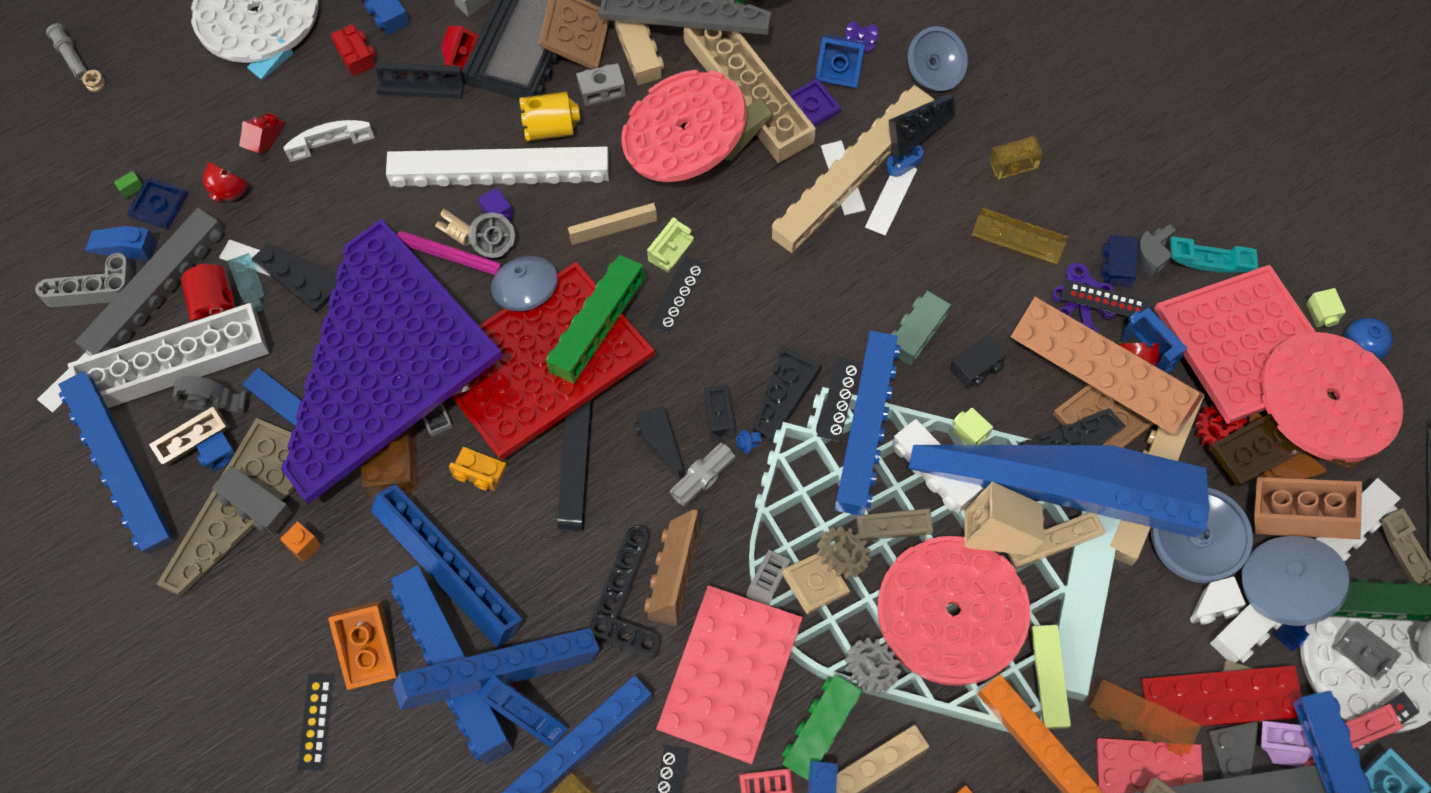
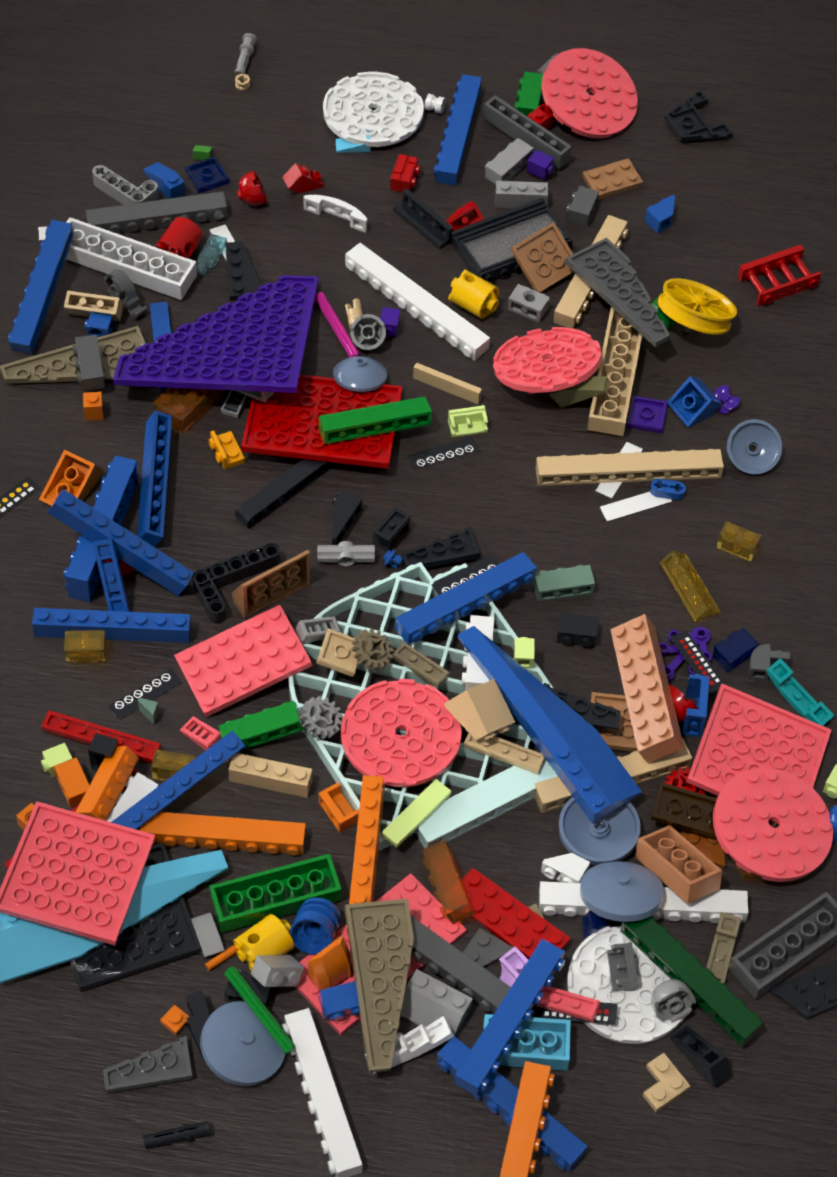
camera: 40 degrees right, 10 degrees down
(919, 123) = (696, 472): black wing -> none
(970, 737) = (338, 808): none -> orange panel

